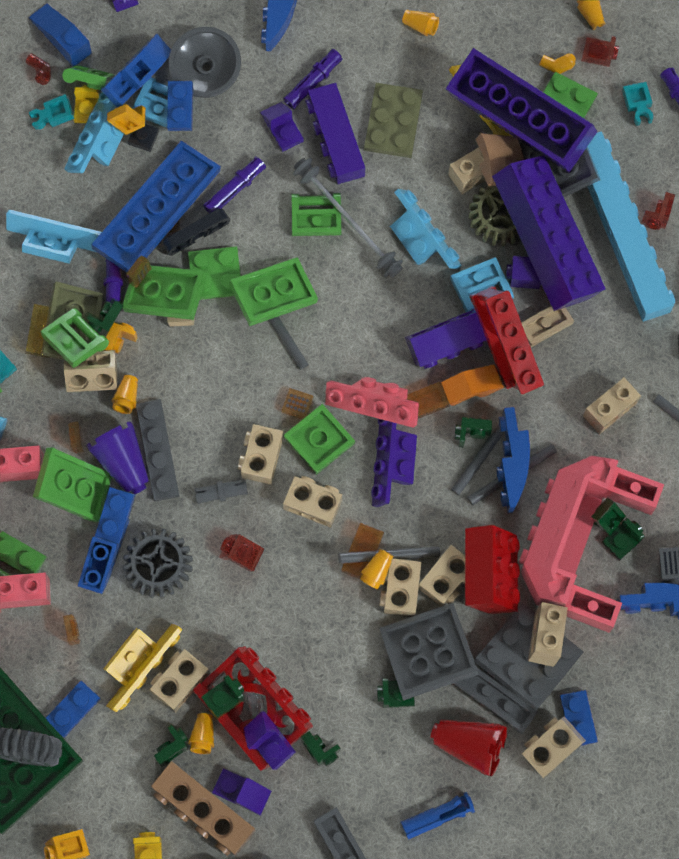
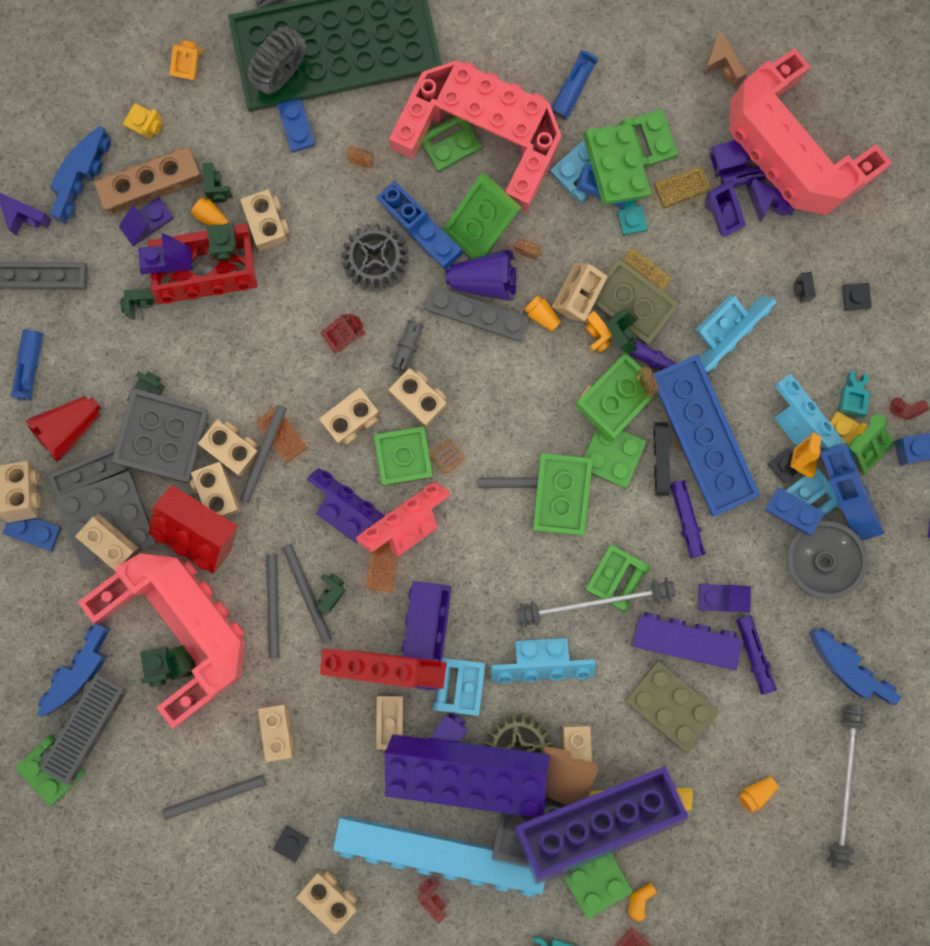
camera: 125 degrees right, 10 degrees up
(69, 342) = (614, 280): bright green plate -> none
(135, 661) = (302, 195): yellow bracket -> none
(377, 569) = (252, 431): light orange cone -> none
(472, 383) = (371, 619): orange slope -> none
(515, 468) = (269, 606): blue slope -> none

